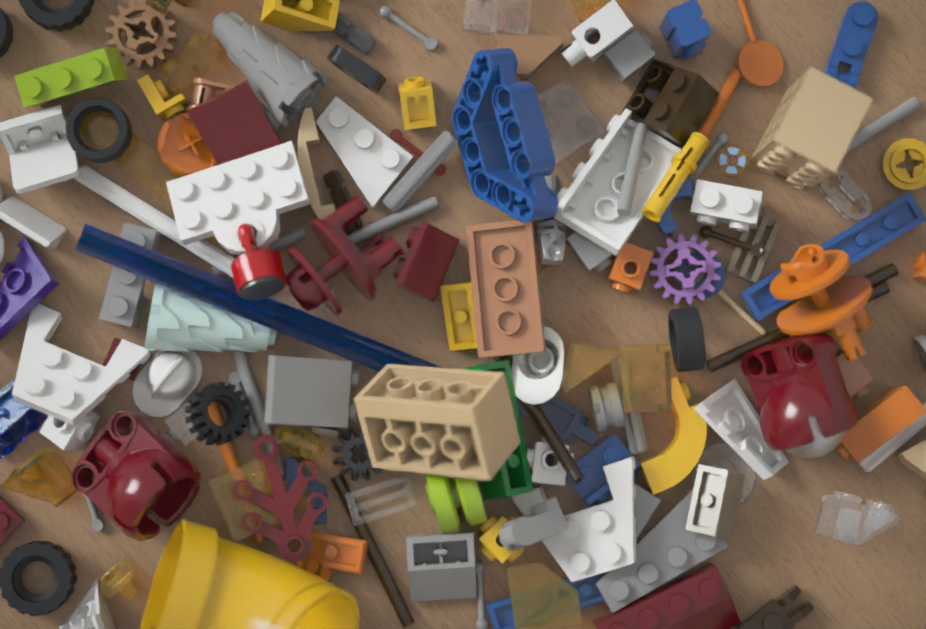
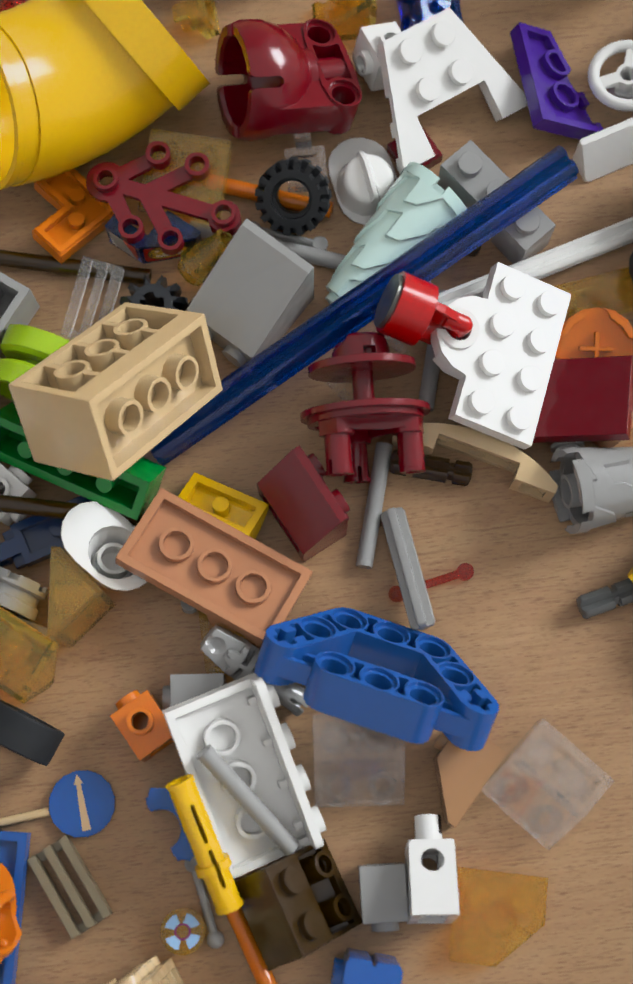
camera: 130 degrees right, 10 degrees down
(356, 69) = (567, 574): black beam -> none
(364, 150) = (472, 526): white wing -> none
(417, 103) = (486, 615): yellow bracket -> none
(430, 43) = (545, 677): light grey hinge -> none
(683, 255) = (87, 805): medium lavender gear -> none
(726, 205) = (135, 885): white brick -> none
(756, 249) = (61, 884): dark brown hinge -> none

